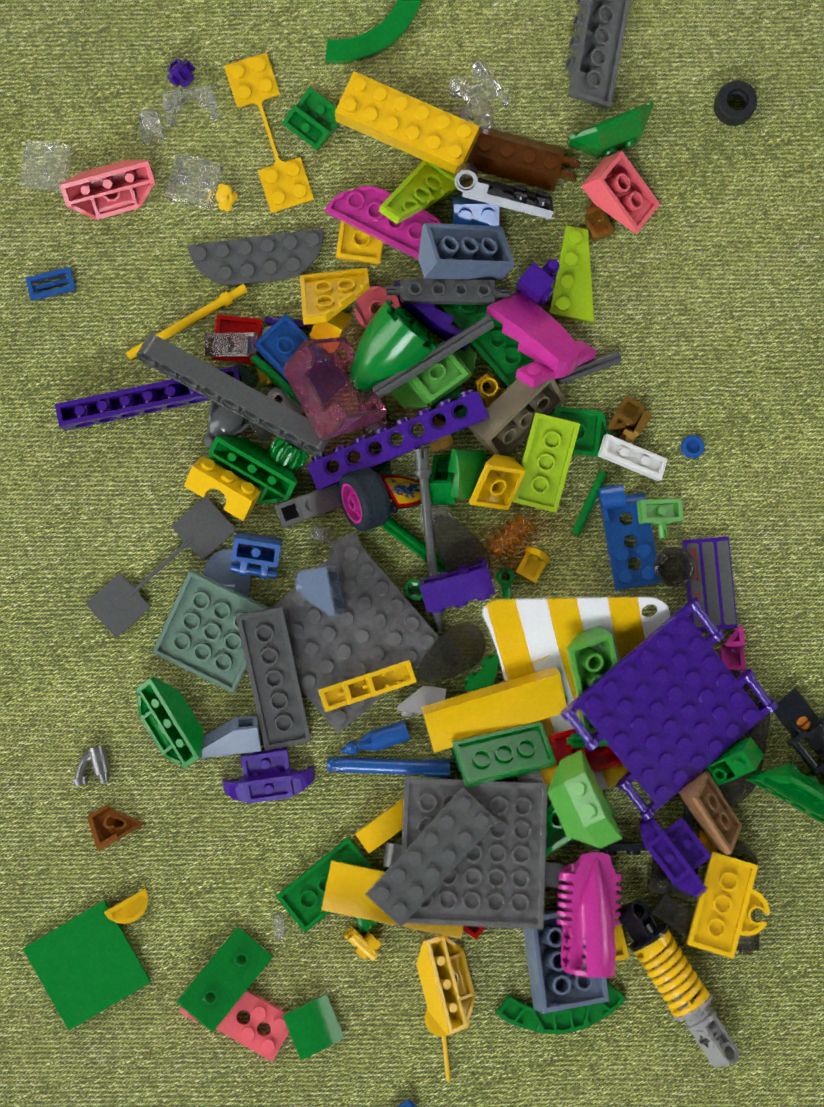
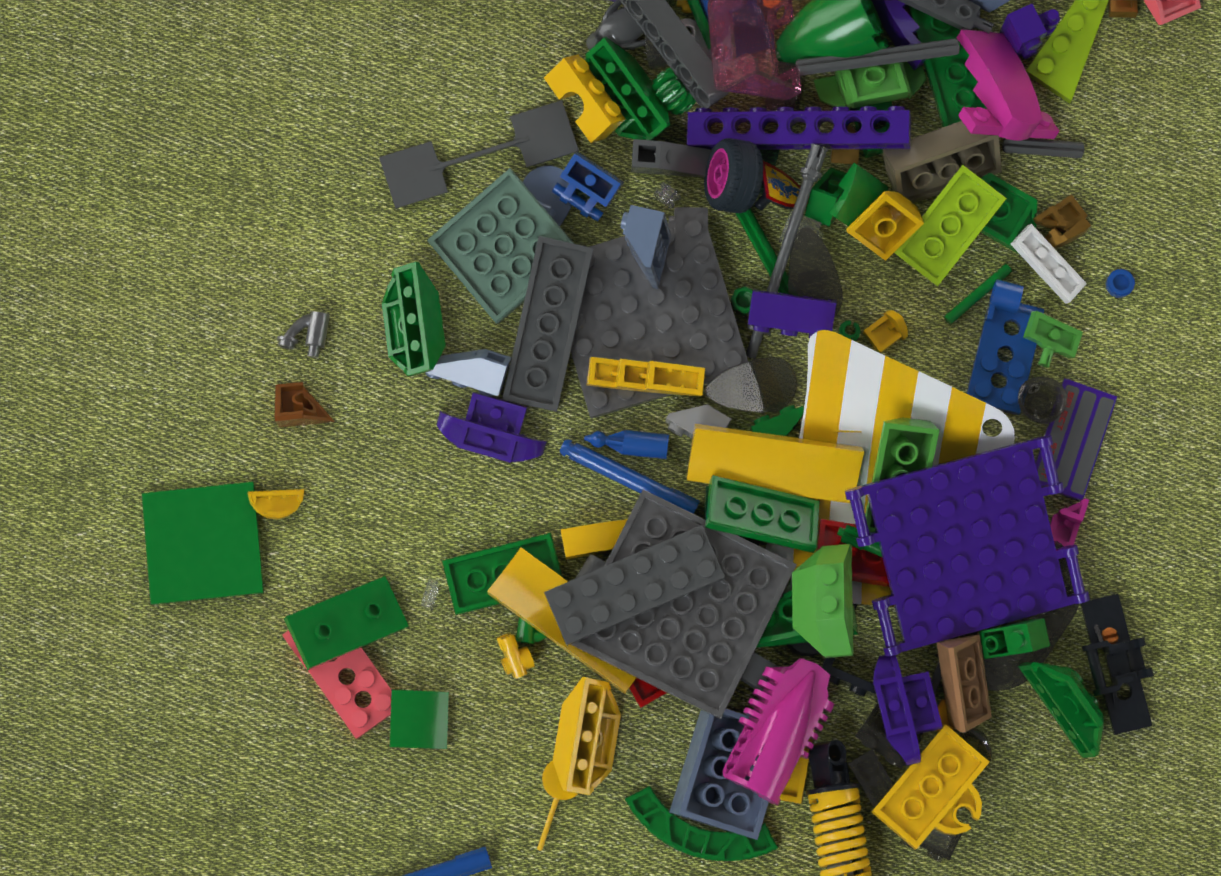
camera: 25 degrees right, 5 degrees down
(493, 392) = (928, 124): yellow plate -> none
(509, 536) = (874, 288): clear orange piece -> none

